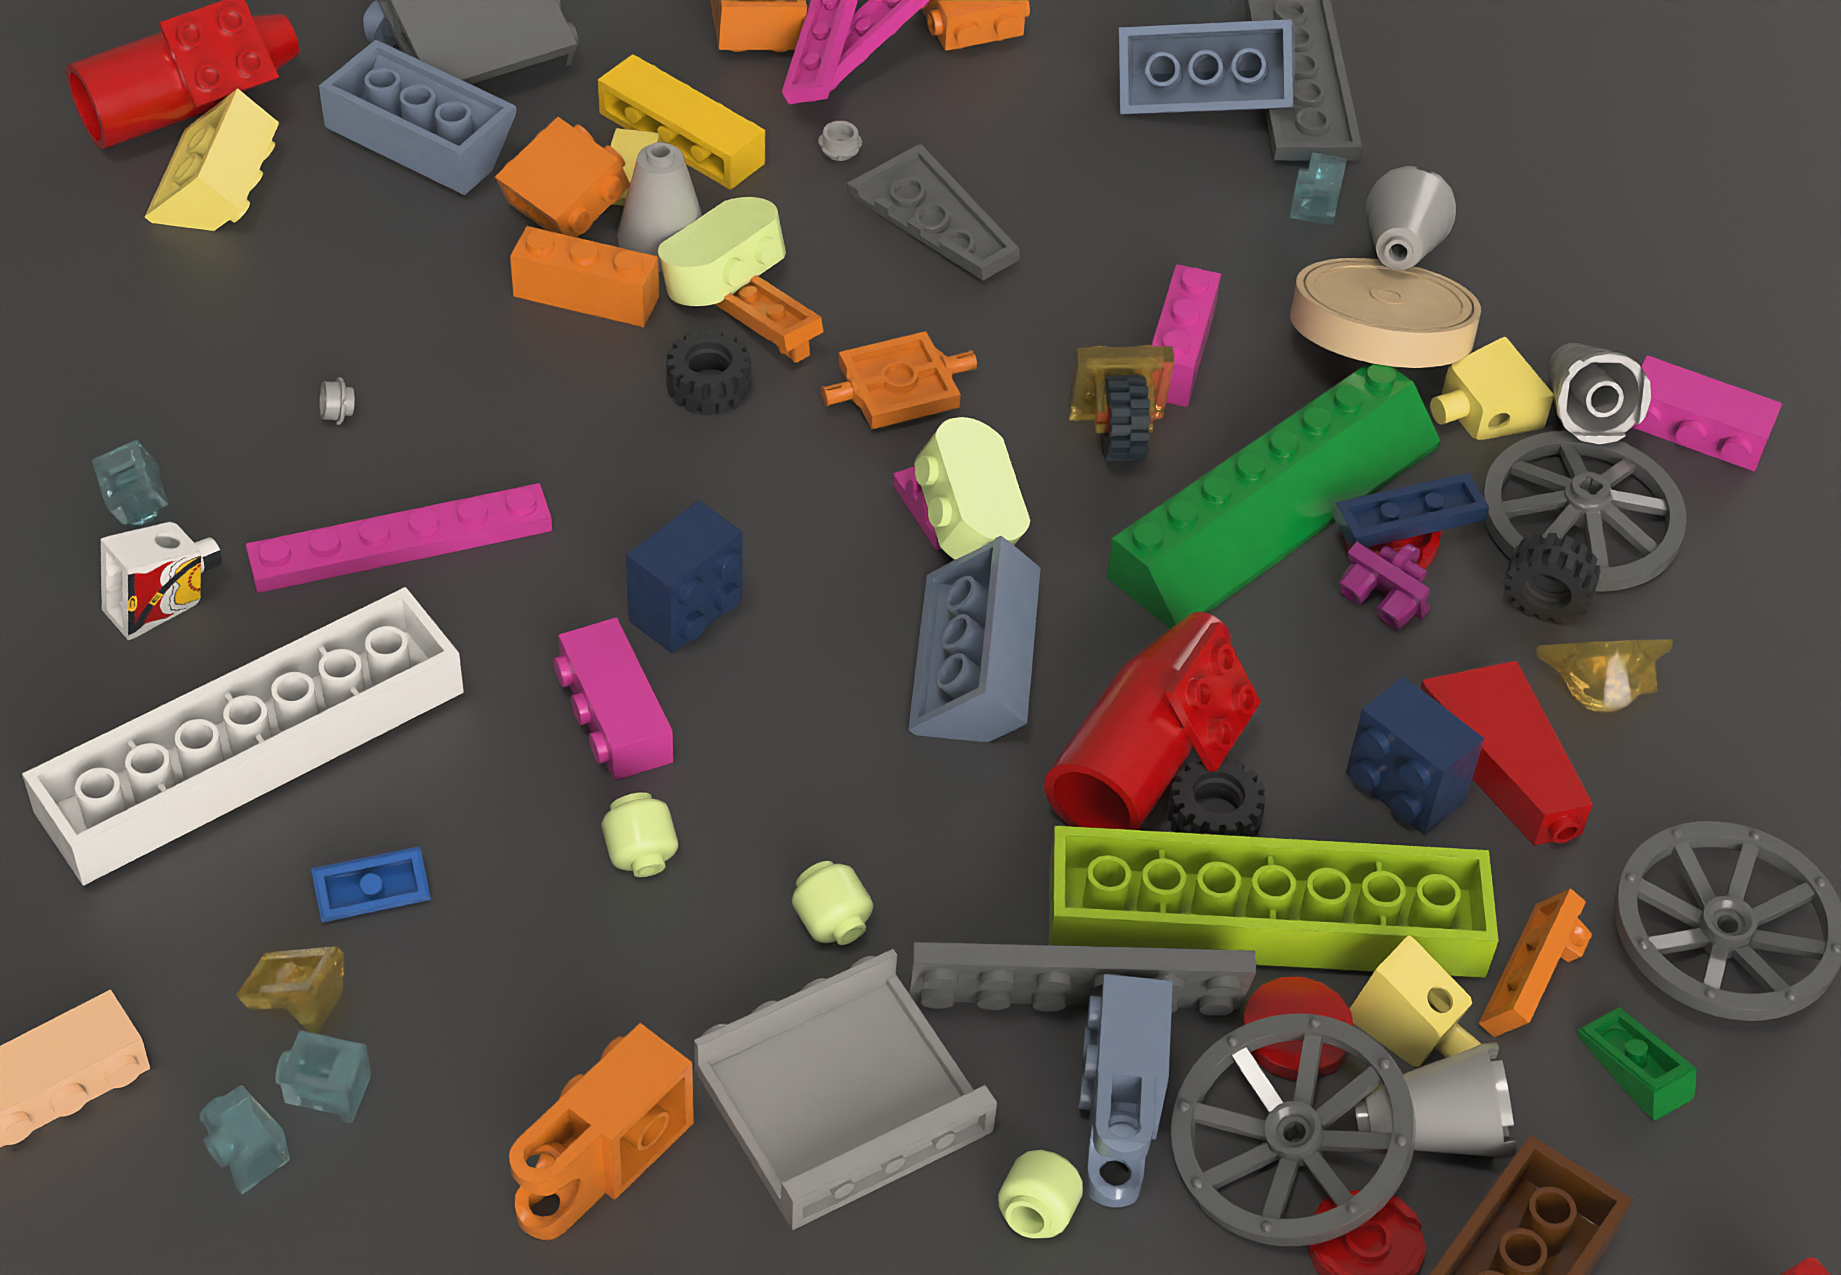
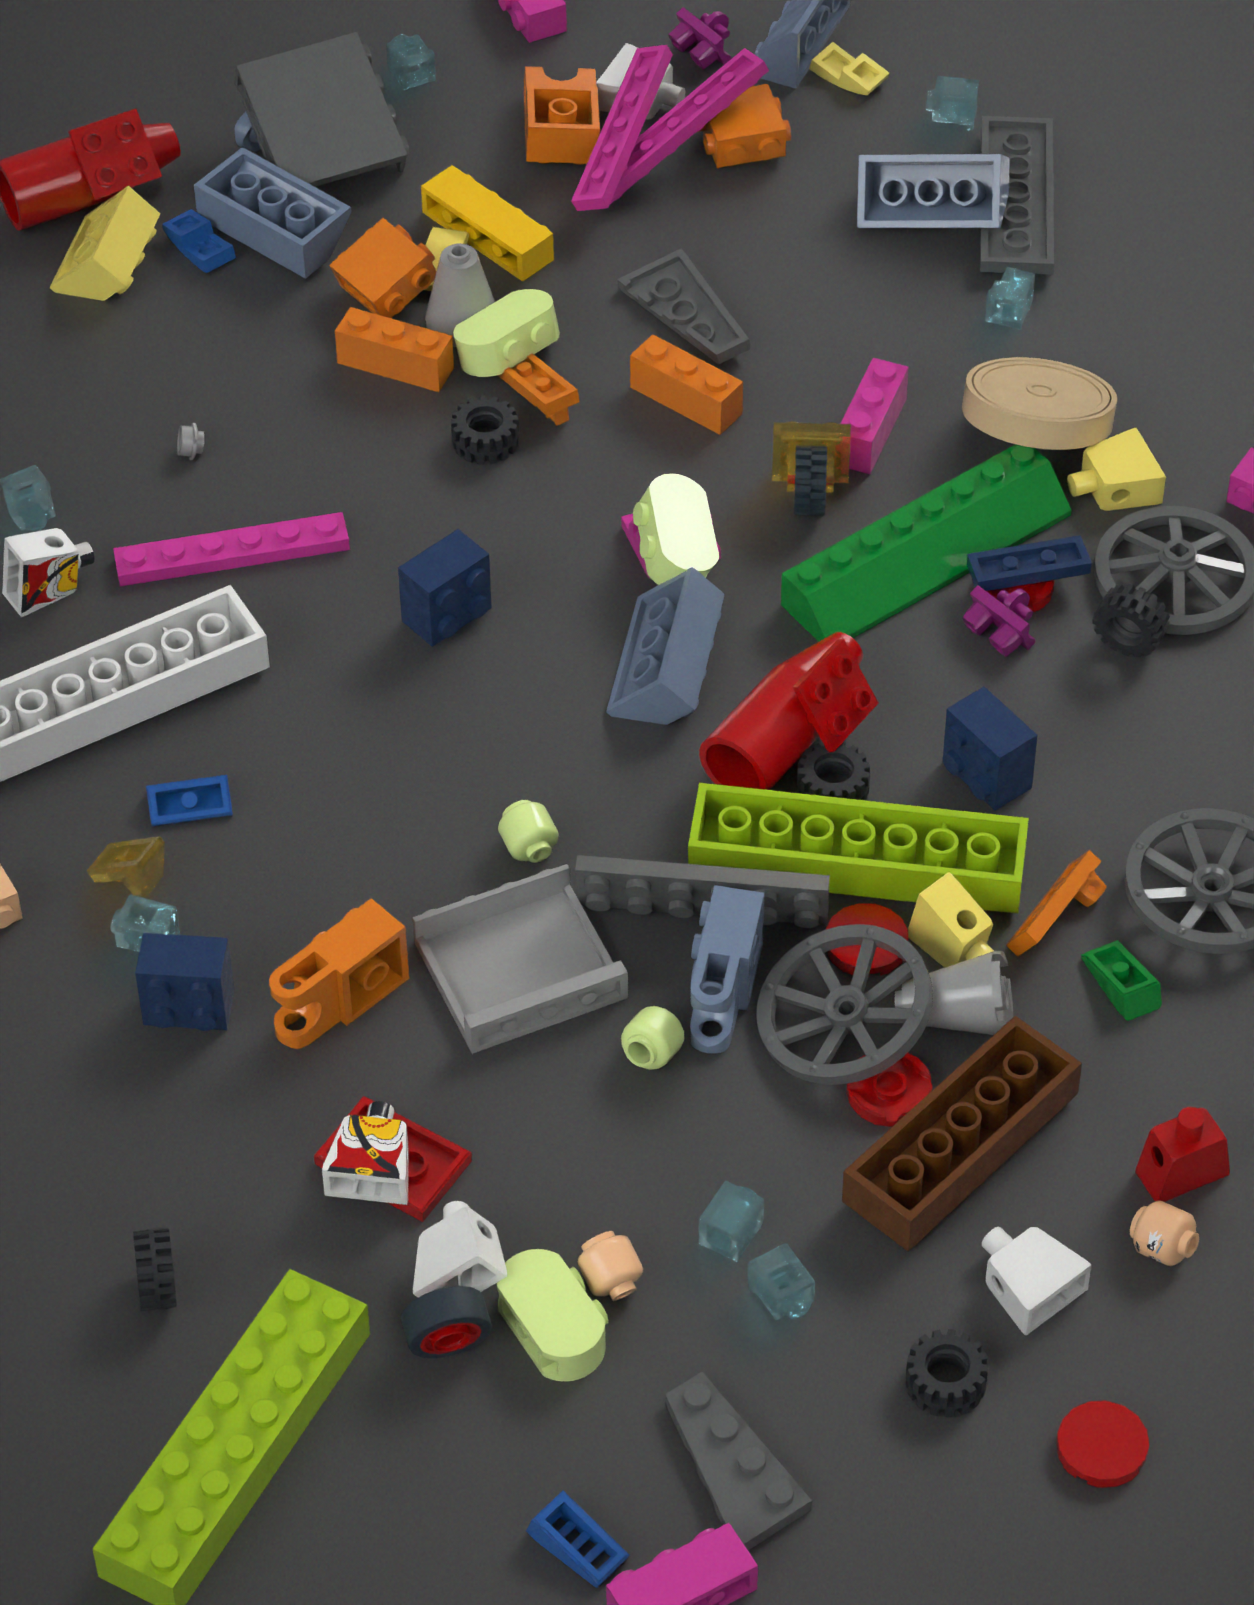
camera: 10 degrees right, 0 degrees up
(244, 1138) = (86, 965): clear light blue brick -> none
(327, 156) = (197, 242): none -> blue slope
(386, 1158) = (185, 981): none -> dark blue brick
(613, 699) = (381, 677): dark pink brick -> none
(639, 834) = (390, 775): yellowish green head -> none
(840, 140) = (617, 243): light grey plate -> none
(899, 379) = (636, 442): orange plate -> none
(950, 305) = (686, 384): none -> orange brick
(1409, 215) = (1075, 325): light grey cone -> none
(1521, 756) = (1071, 748): red slope -> none
(1598, 392) = (1200, 477): light grey cone -> none
(1607, 673) = (1163, 695): clear yellow hat -> none

